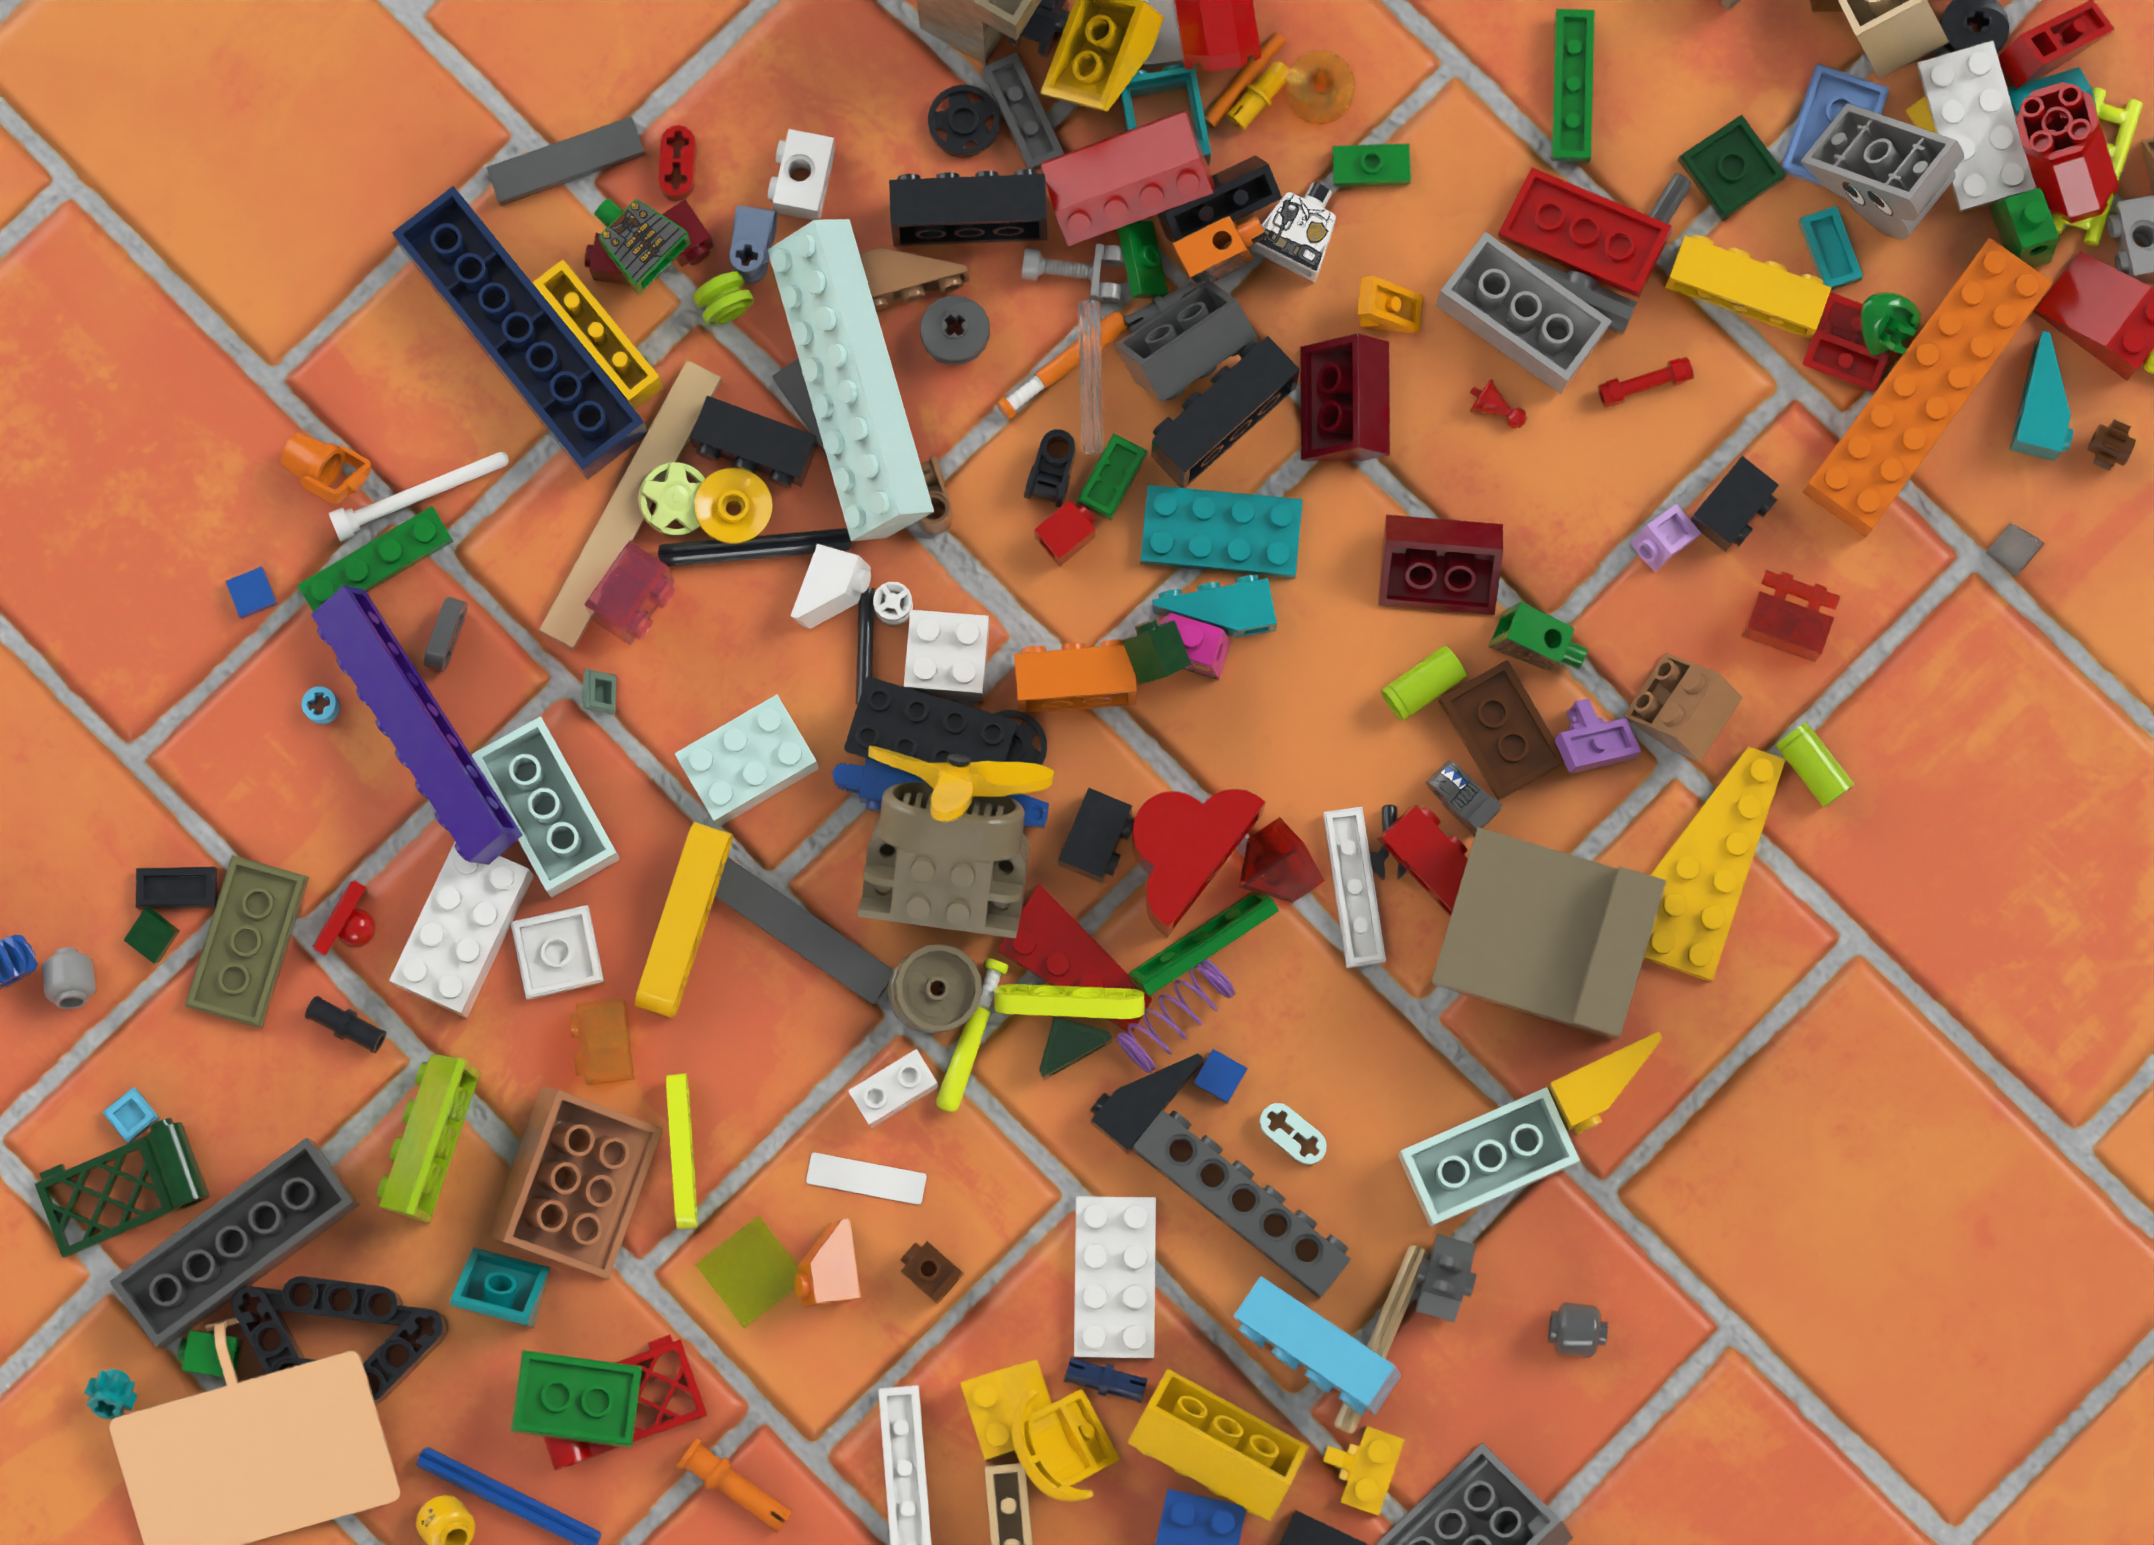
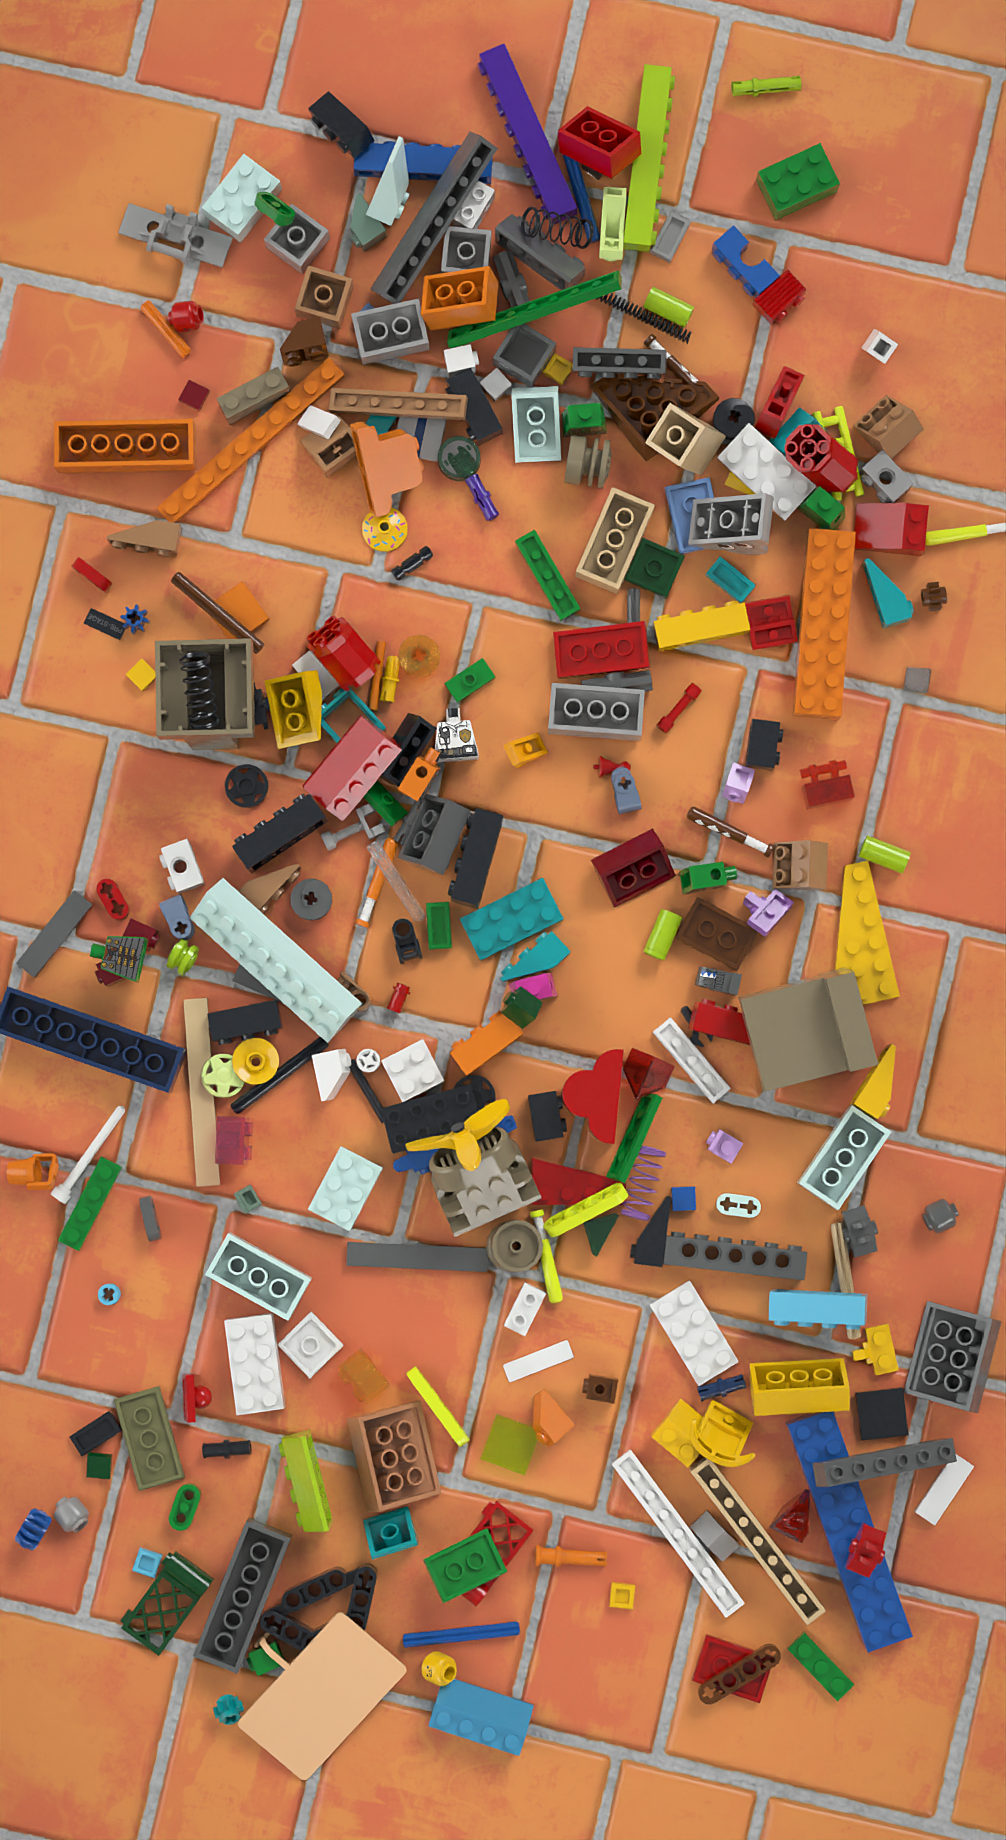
camera: 30 degrees left, 5 degrees up
(234, 1067) = (184, 1506): none -> green plate
(251, 592) = (36, 1258): blue tile -> none
(416, 726) = (167, 1277): dark purple brick -> none
(599, 334) = (130, 1016): yellow brick -> none
(683, 919) = (365, 1289): yellow beam -> none
(991, 542) = (398, 997): none -> red pin
(1022, 111) = (274, 763): dark grey plate -> none
(1066, 532) = (433, 969): red brick -> none
(1325, 1035) = (723, 1145): none -> lavender bracket
(1345, 399) = (532, 812): dark red slope -> none
(1493, 454) = (625, 794): none -> sand blue piece
(1603, 586) = (723, 828): none -> reddish brown piece
(1699, 92) = (614, 540): none -> tan brick
(1888, 322) = (784, 602): green piece -> none

